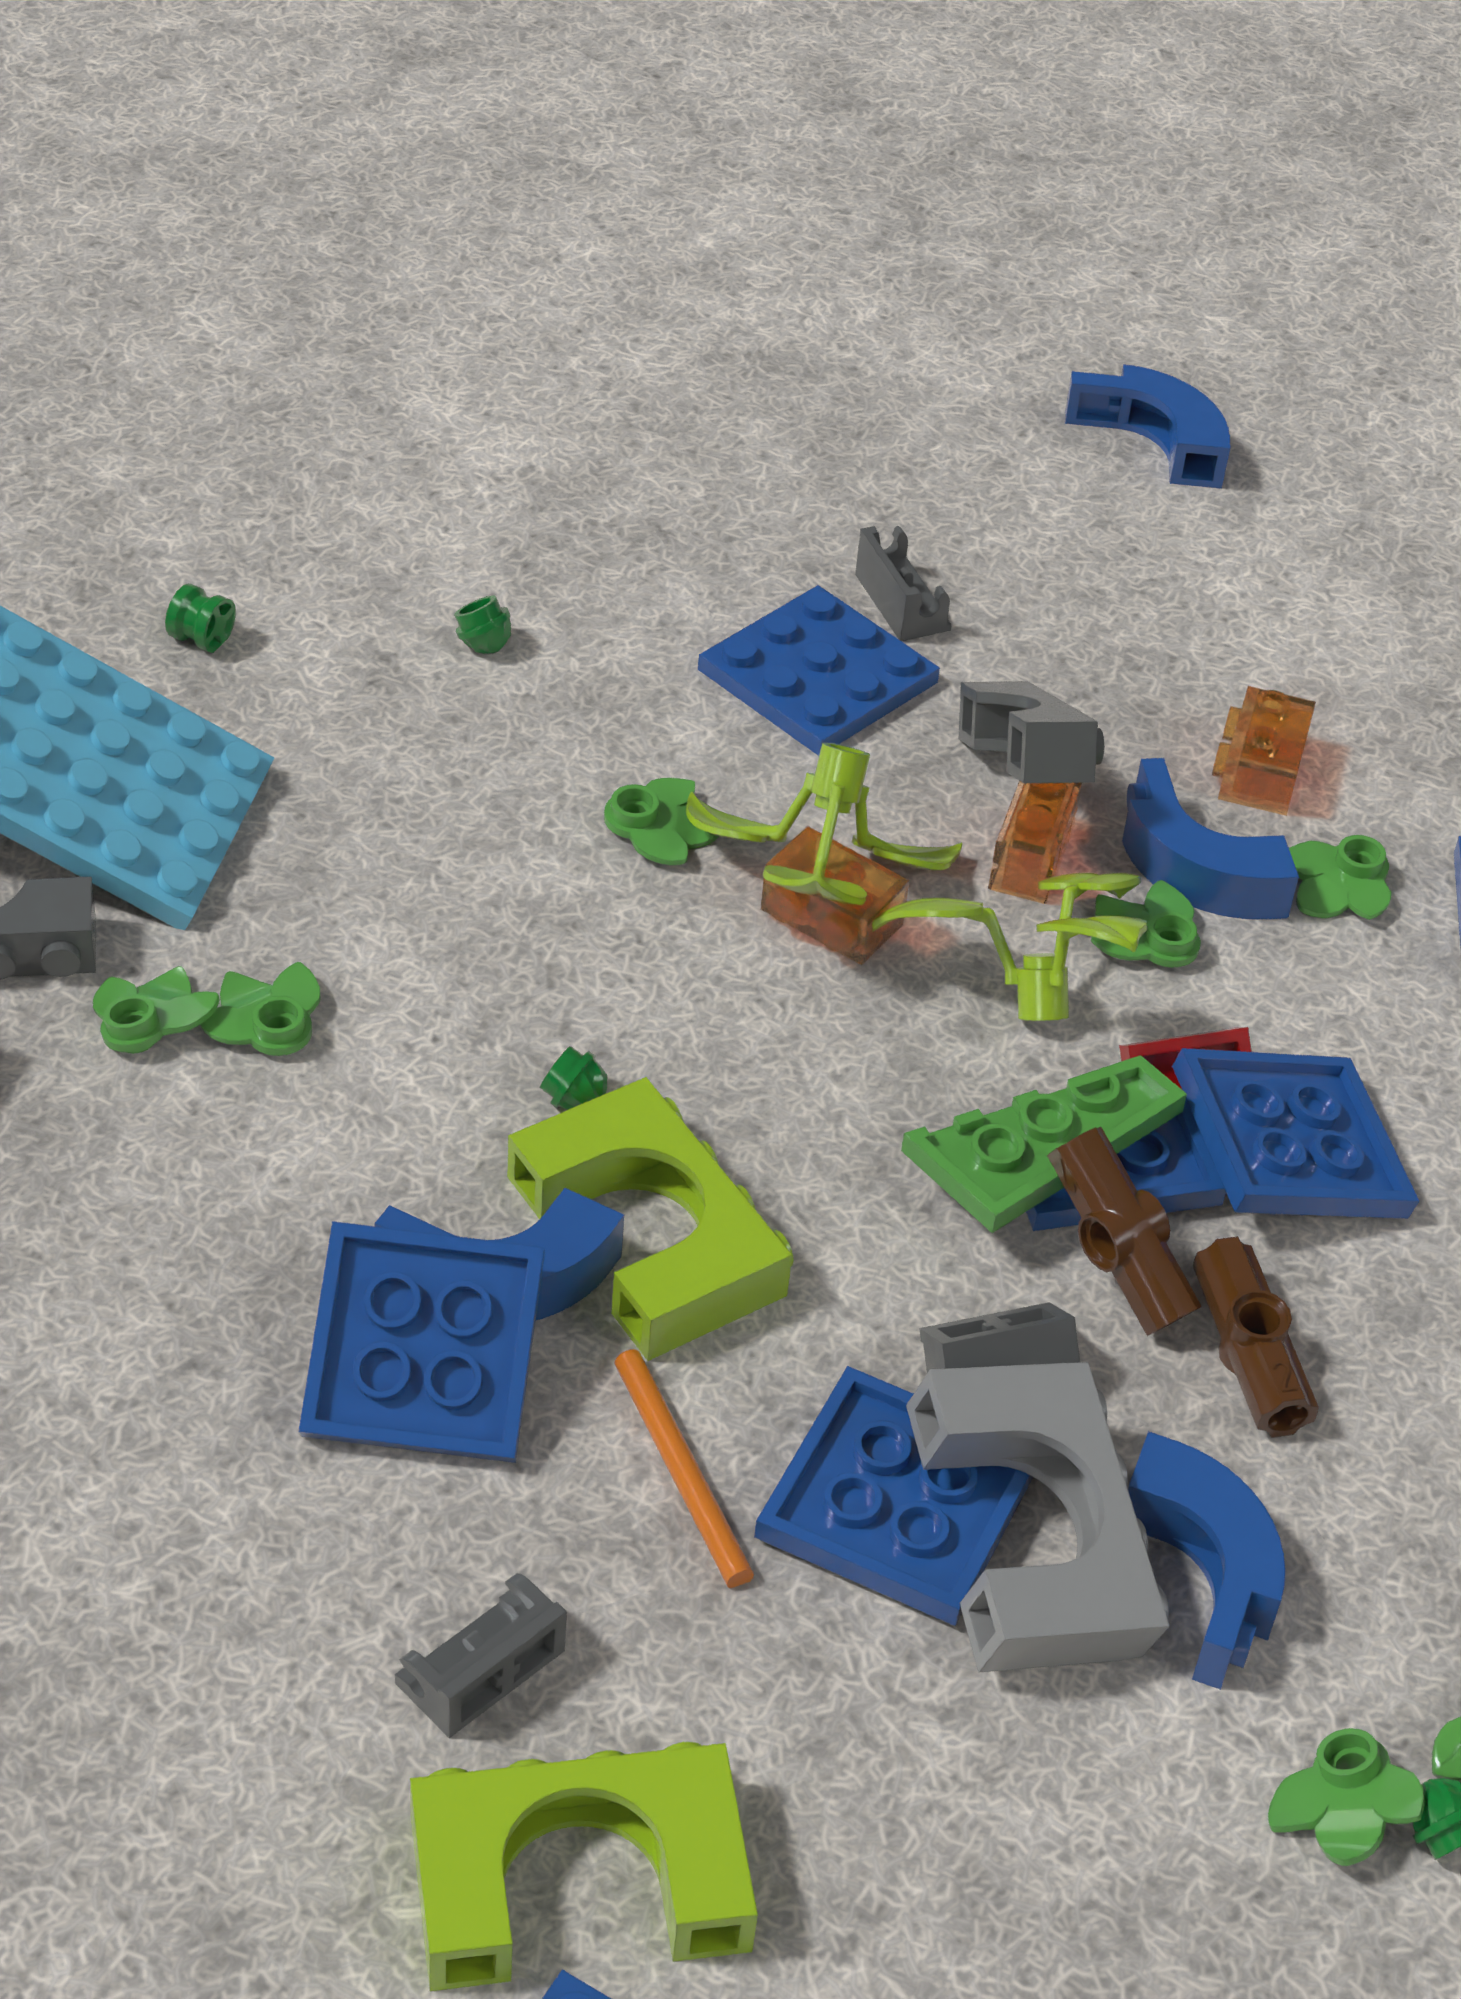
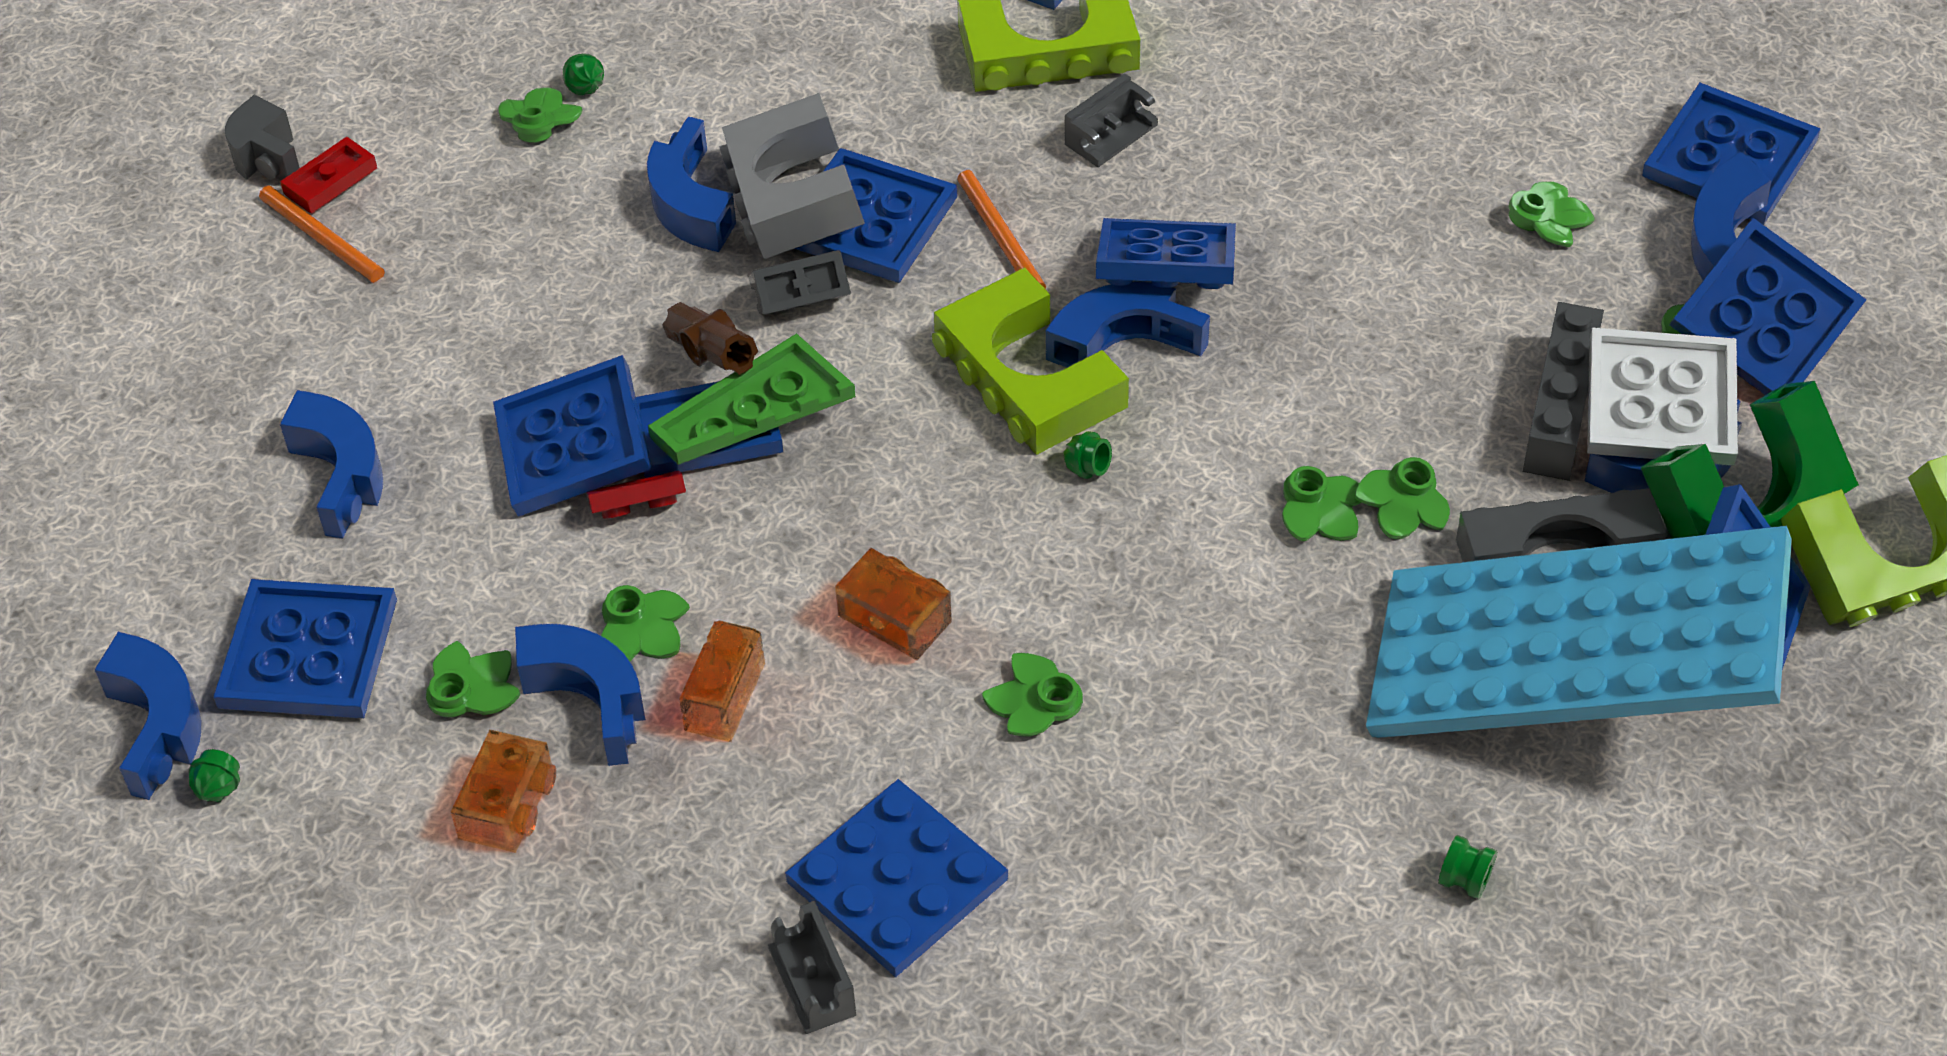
camera: 175 degrees left, 5 degrees up
(484, 625) = (1210, 880): green plate -> none
(836, 785) = (834, 659): lime plant -> none
(1038, 731) = (710, 655): dark grey arch -> none
(1044, 977) = (702, 473): lime plant -> none
(1255, 1337) = (631, 310): reddish brown piece -> none
(1347, 1797) = (637, 81): bright green plate -> none

